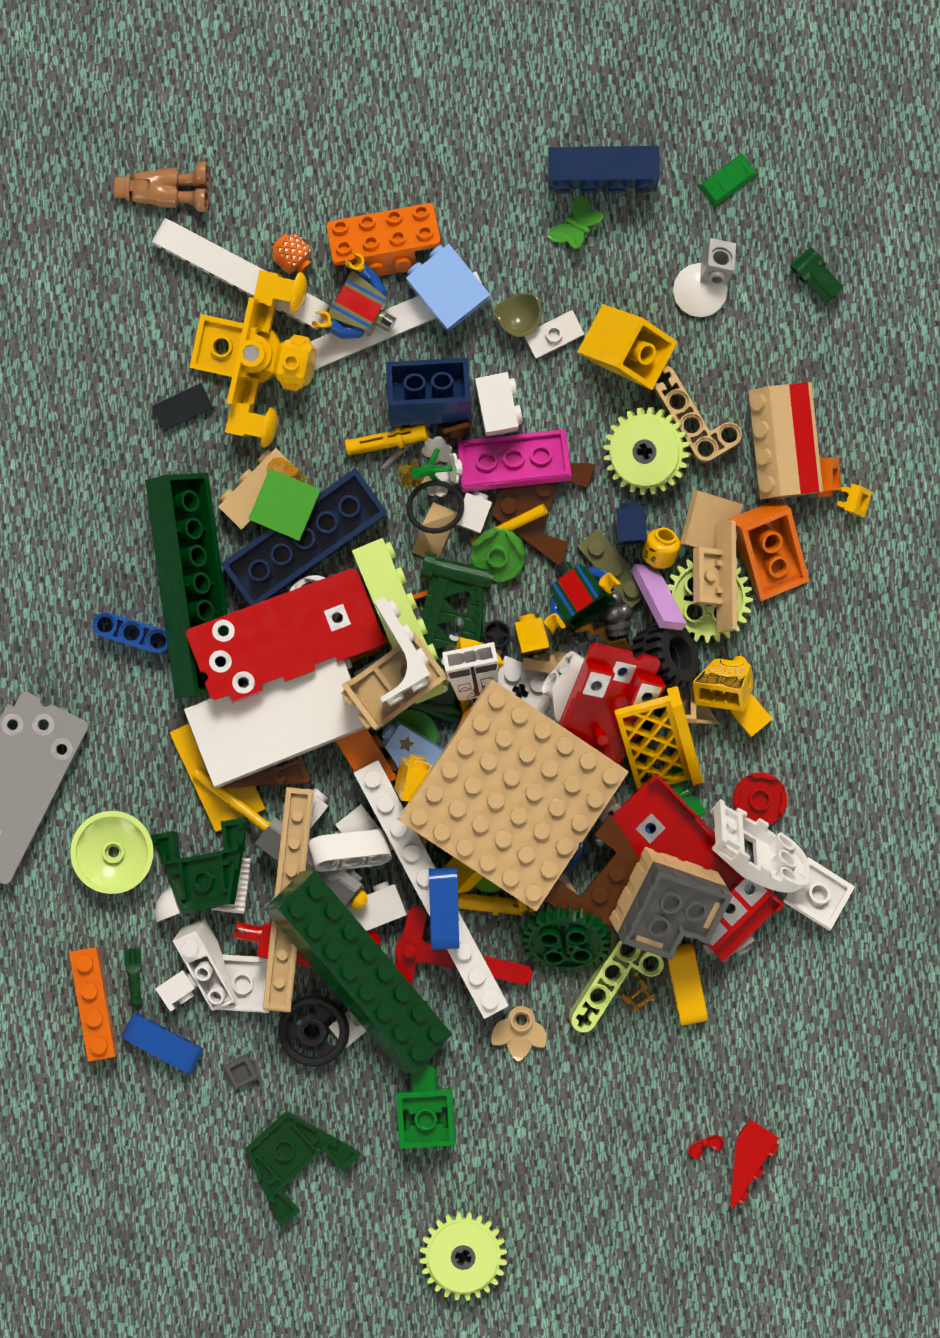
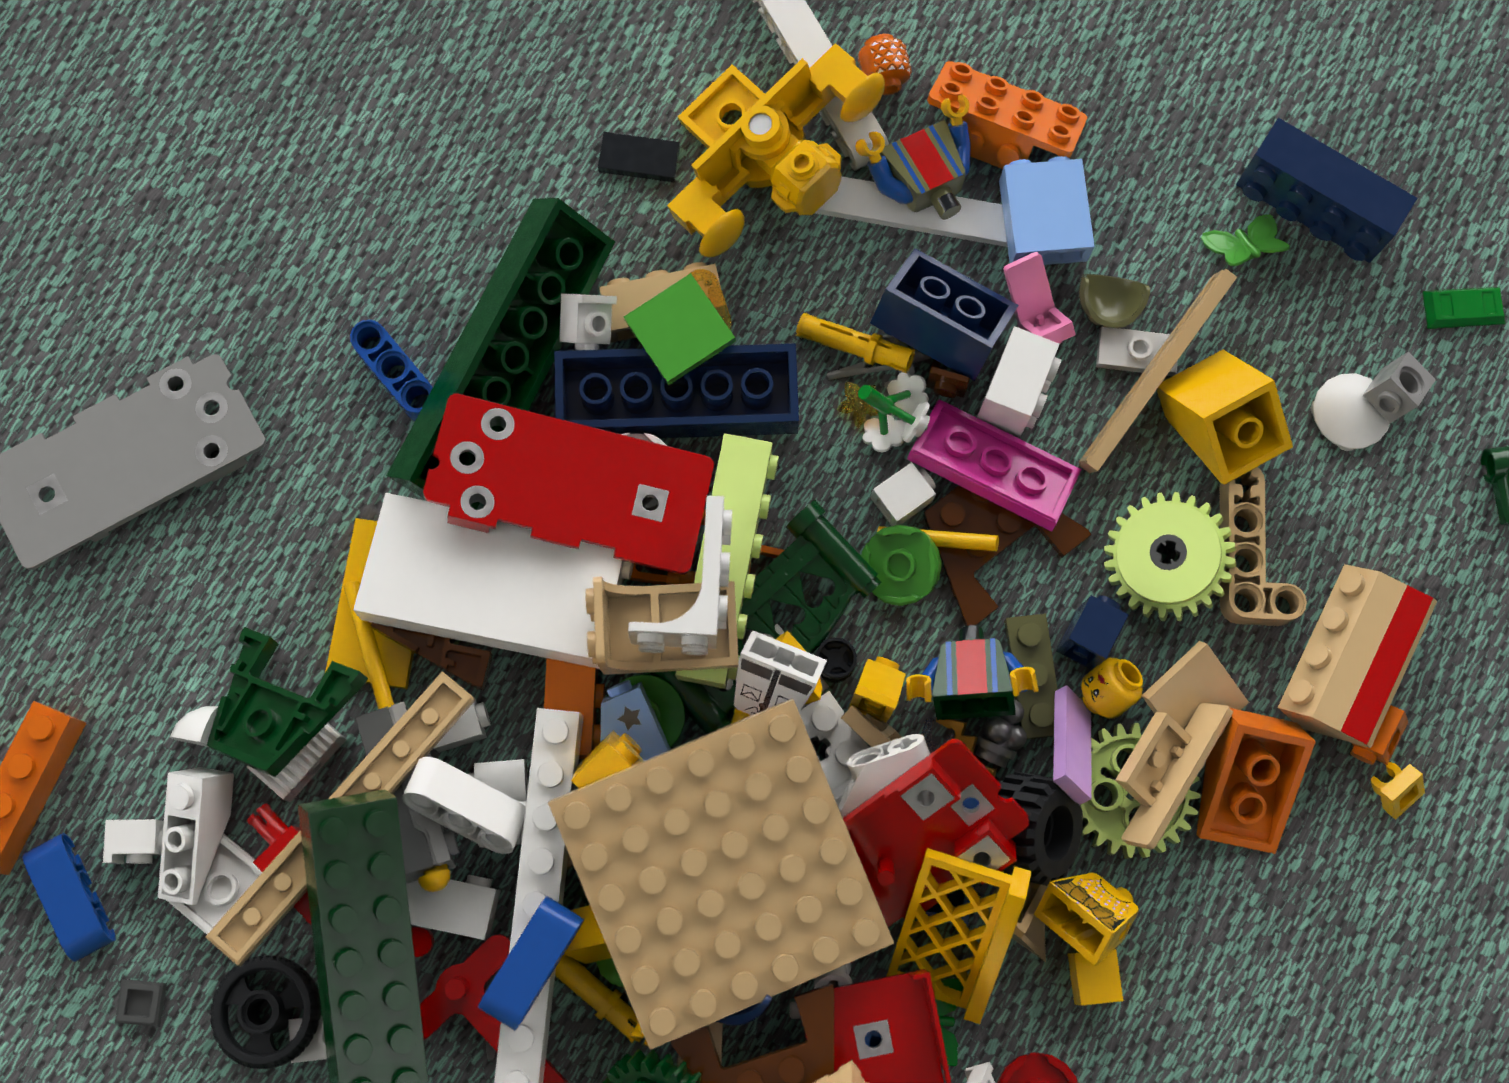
camera: 30 degrees right, 10 degrees down
(92, 857) = (158, 597): yellowish green dish -> none
(132, 963) = (106, 775): dark green piece -> none
(225, 532) = (586, 320): none -> white brick
(435, 530) = (852, 483): black tyre -> none
(437, 517) = (841, 486): tan slope -> none
(477, 348) = (1036, 308): none -> bright pink bracket
(572, 344) = (1156, 371): none -> tan tile

